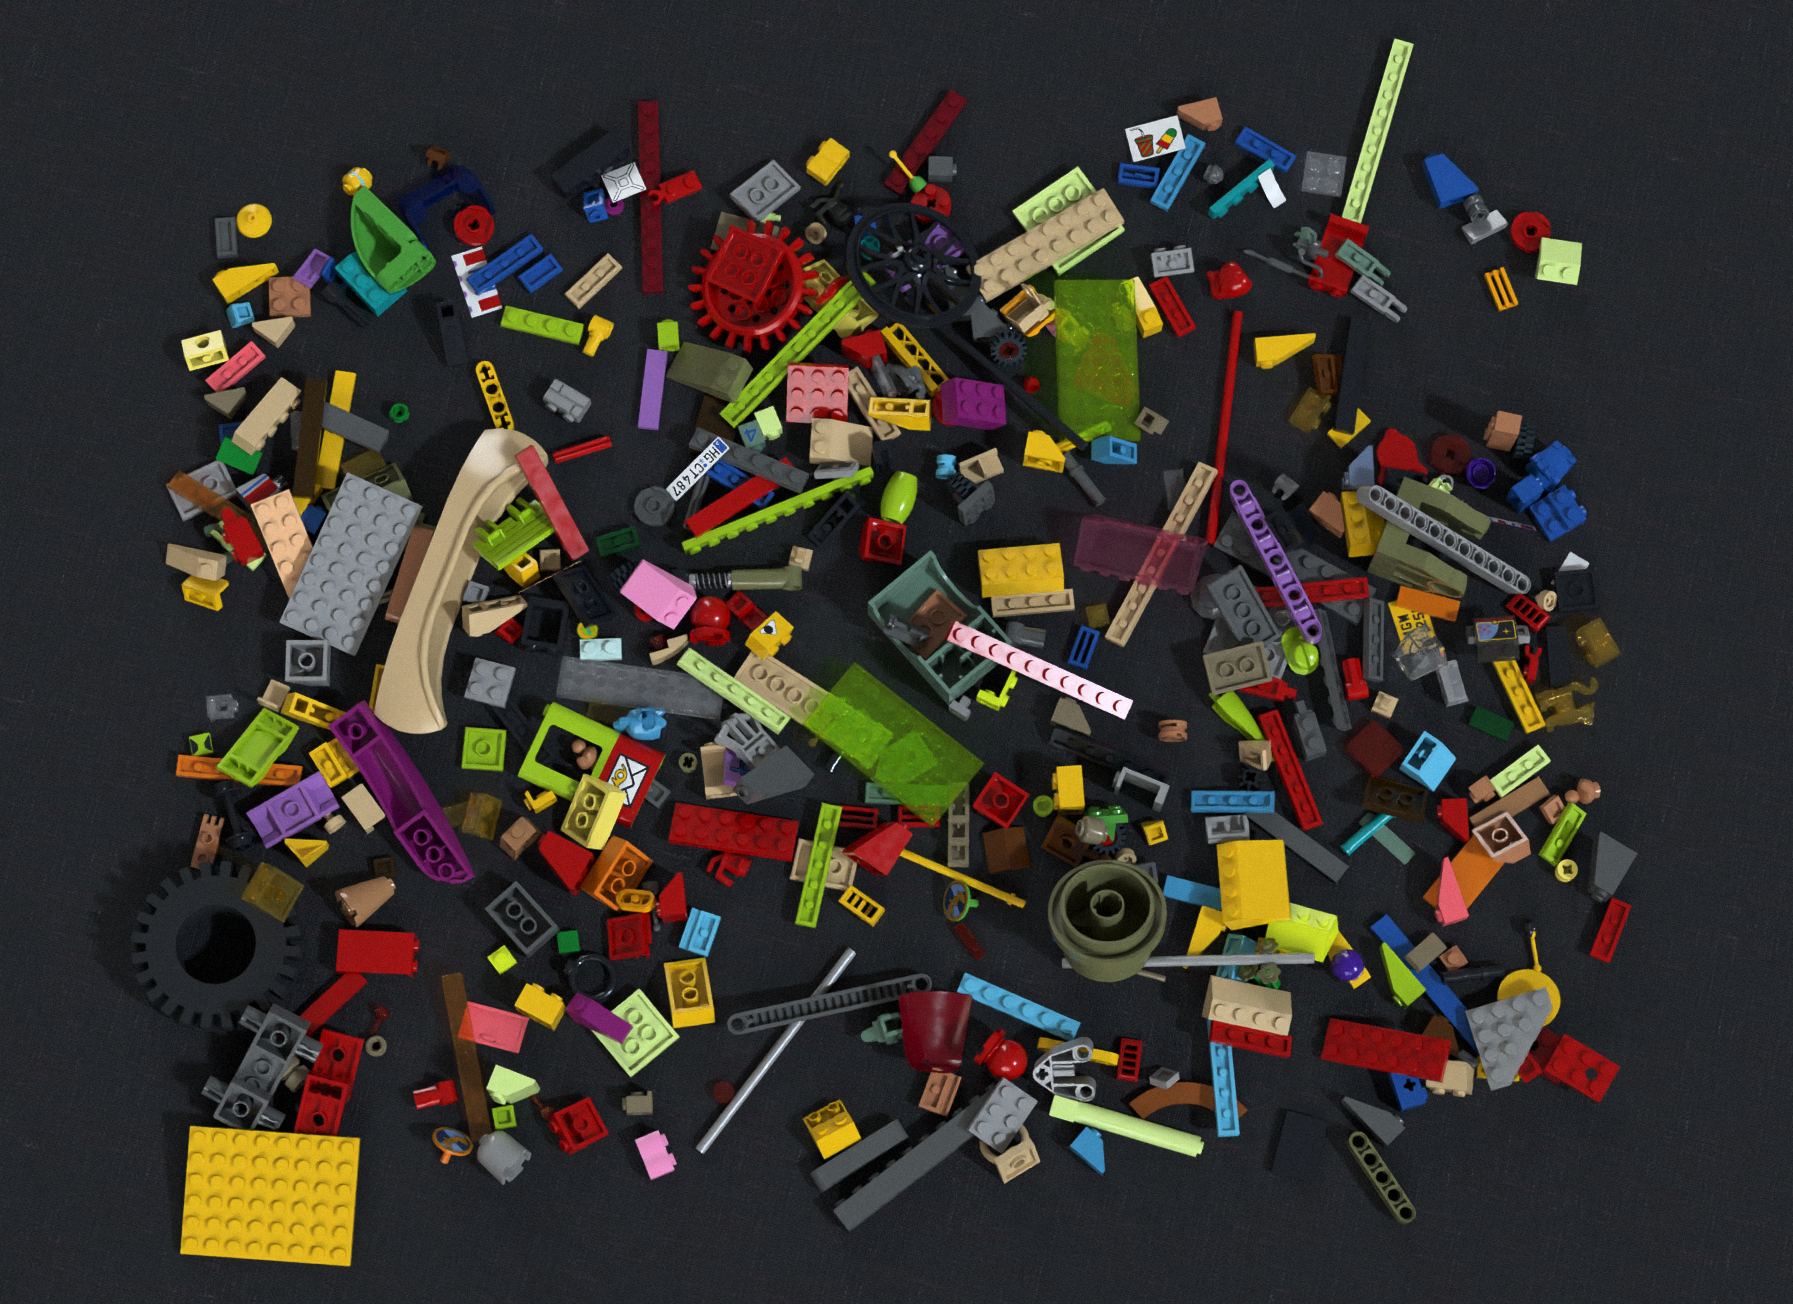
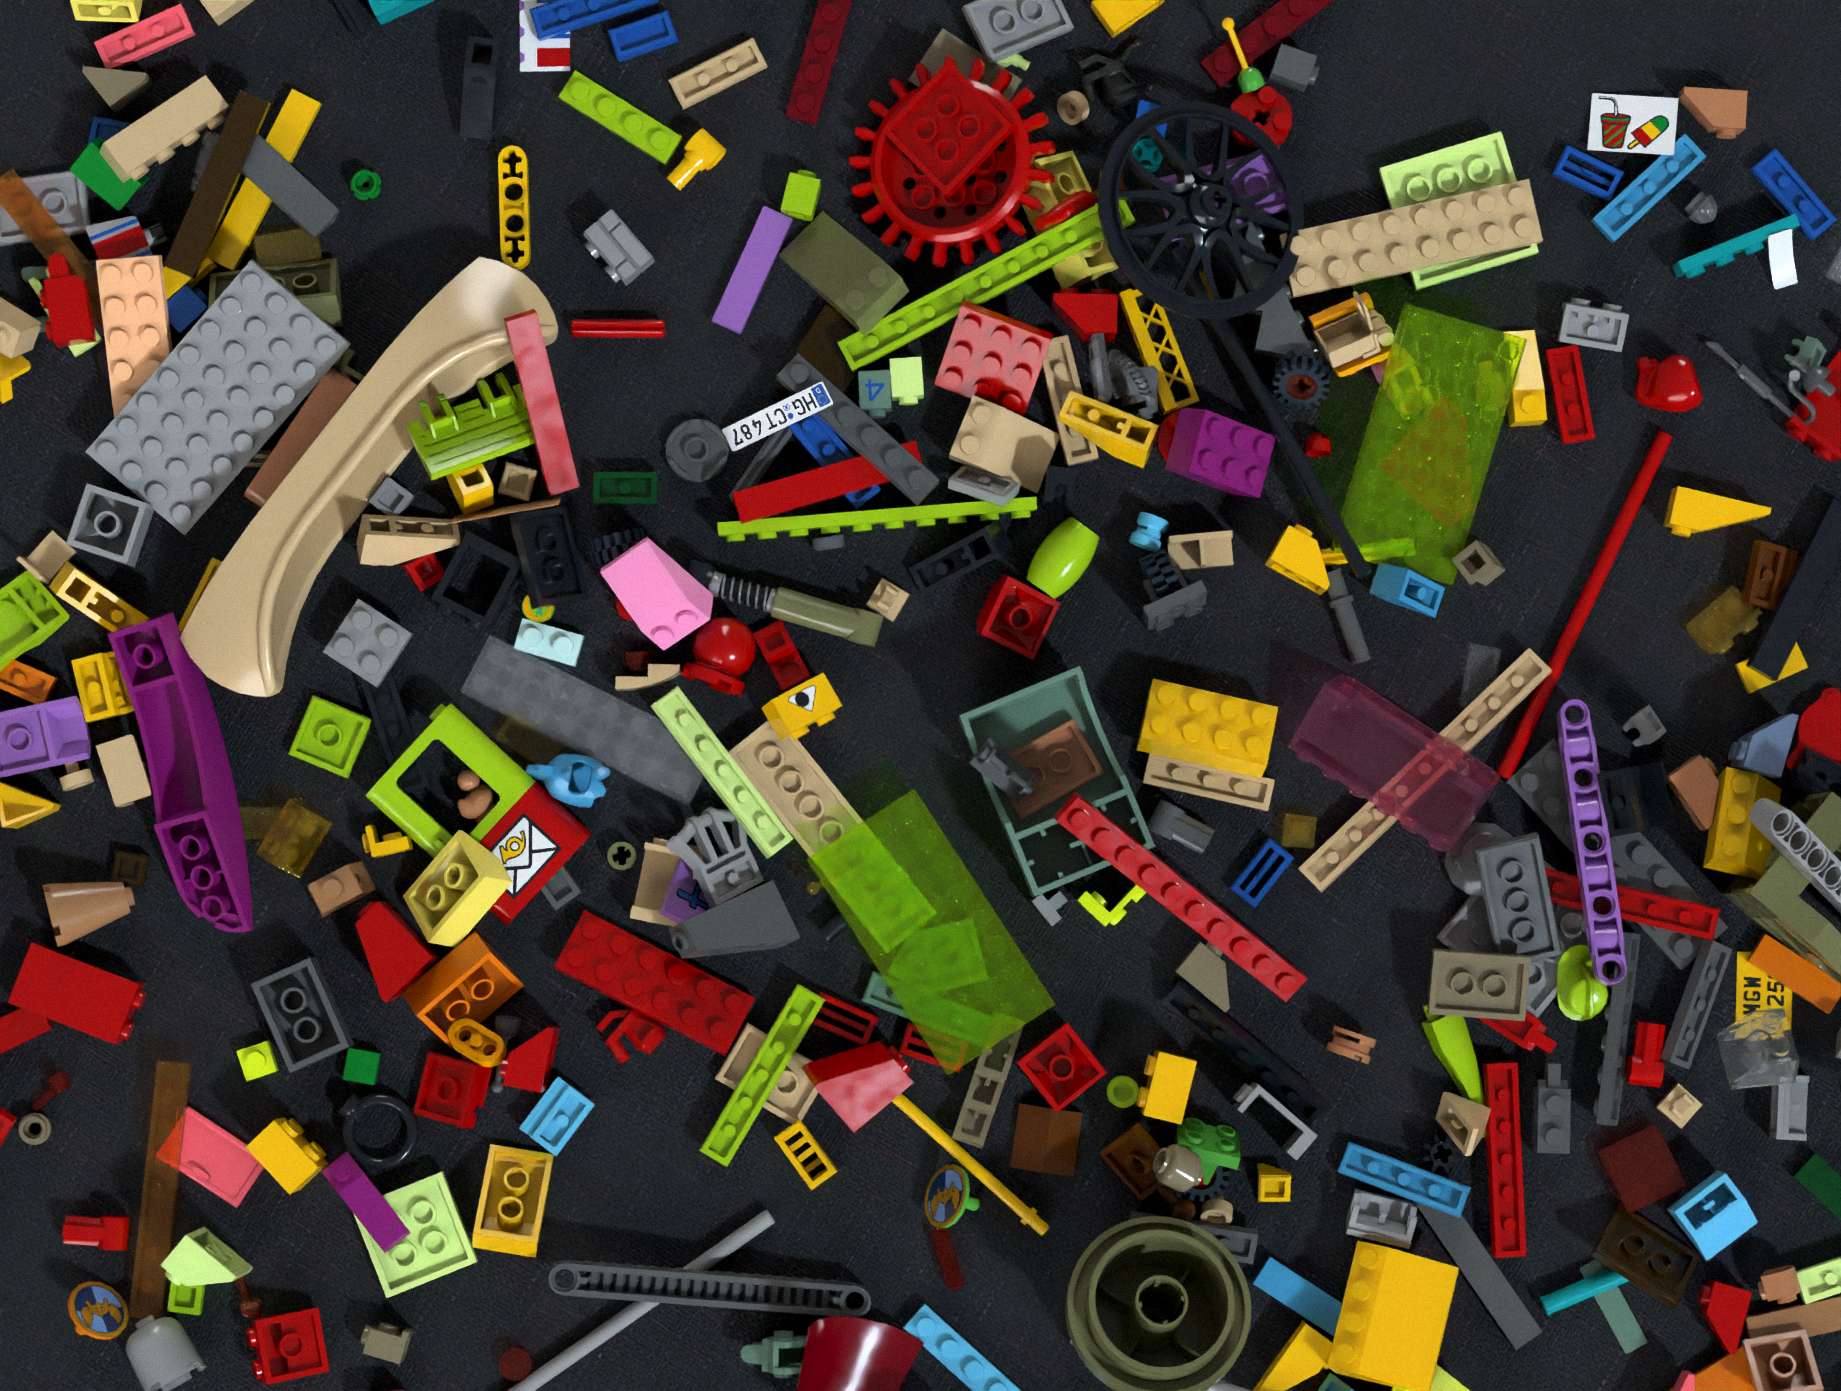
camera: 20 degrees right, 10 degrees up
(753, 534) = (828, 542): none -> dark grey tile

